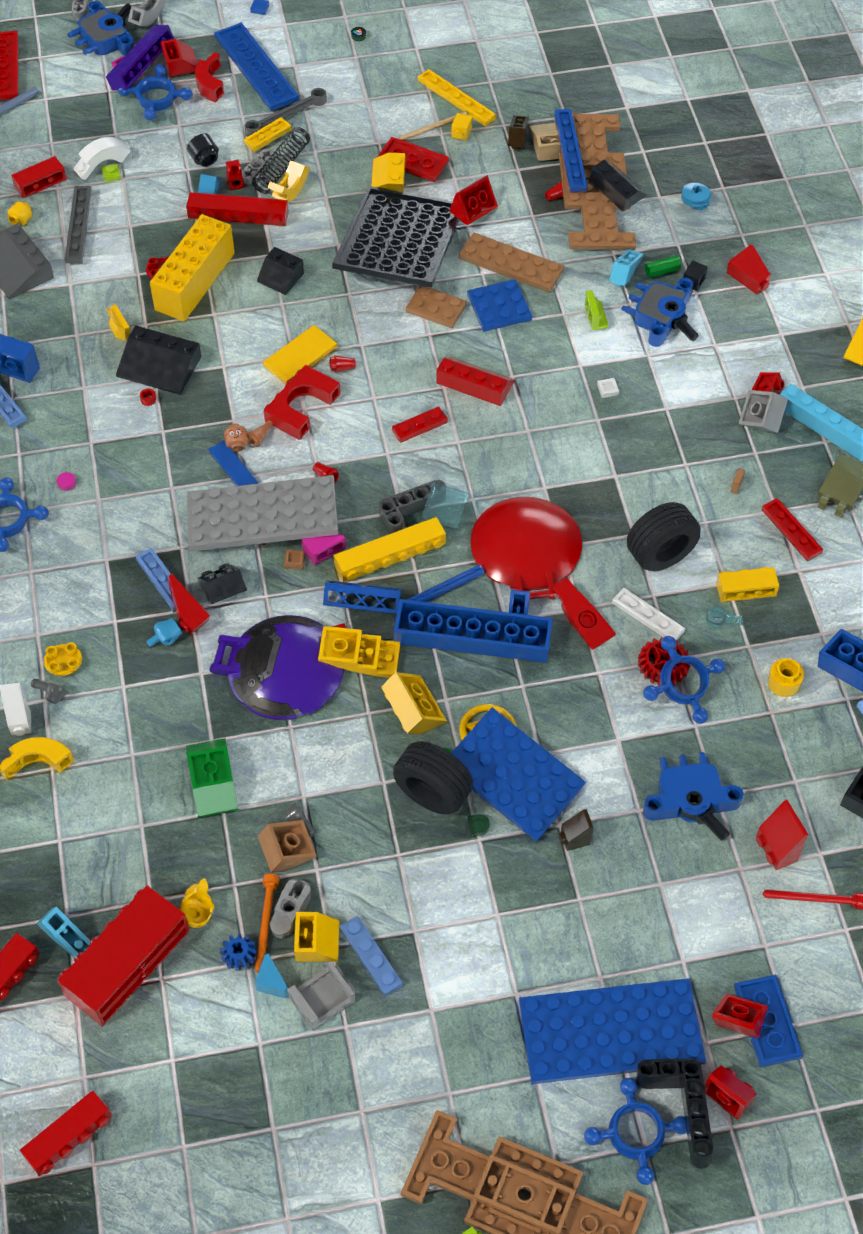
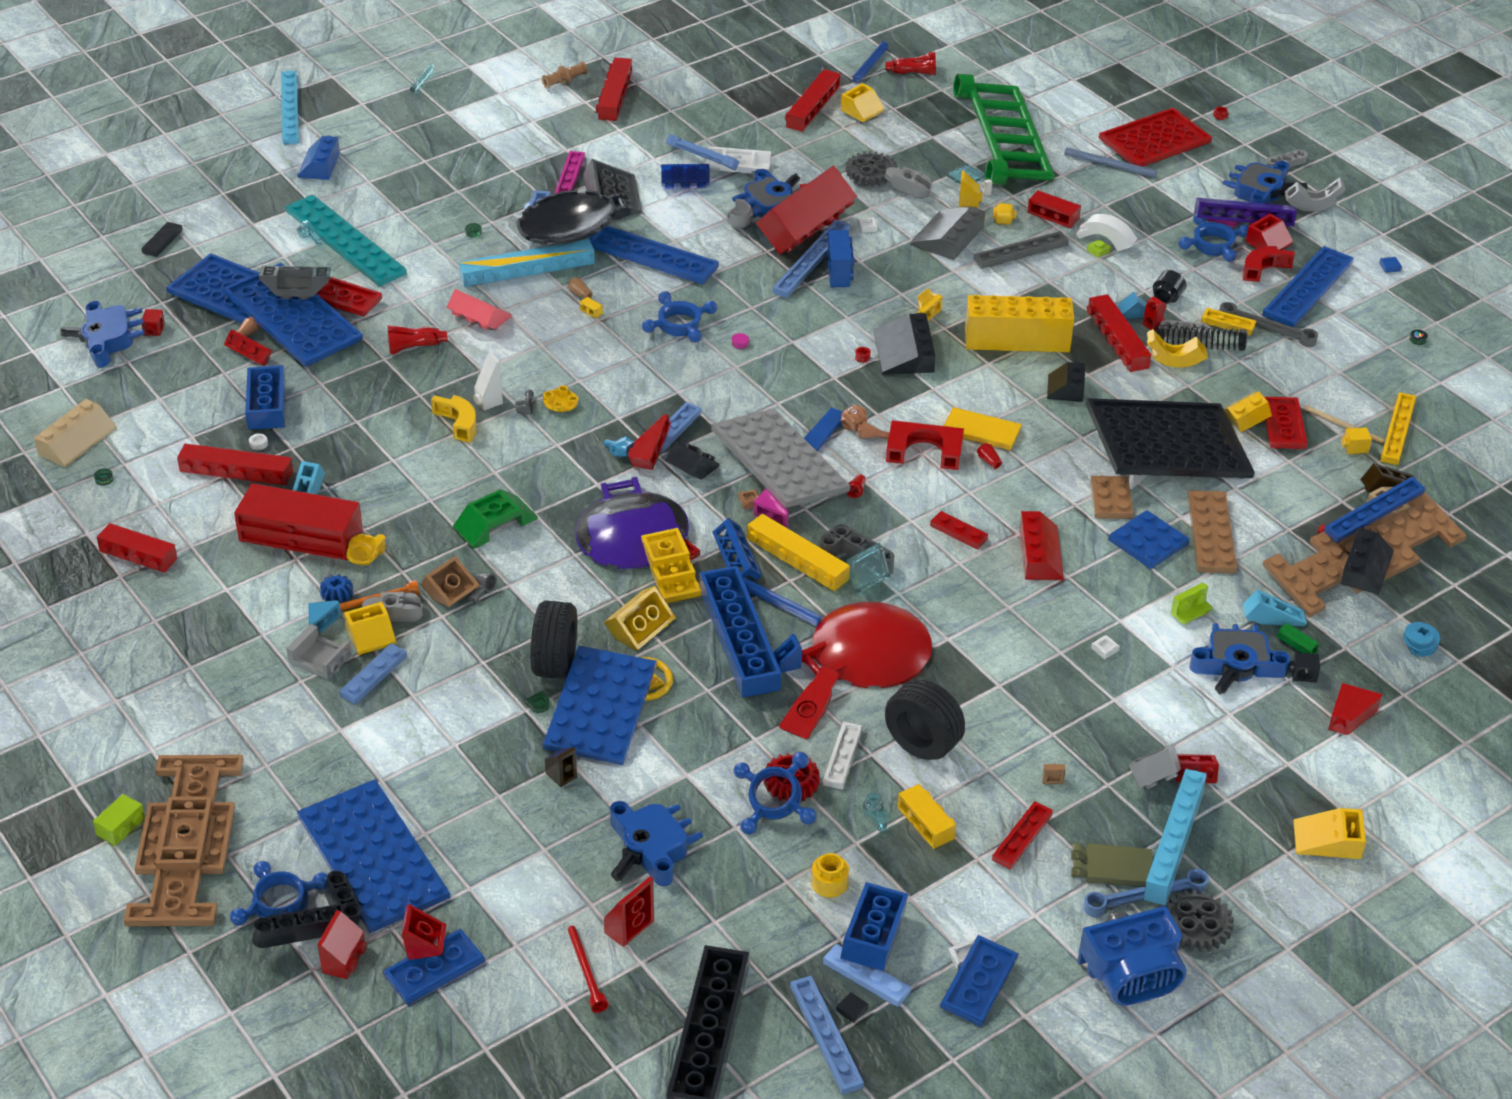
camera: 65 degrees right, 15 degrees down
(474, 201) = (1259, 473): red slope -> none

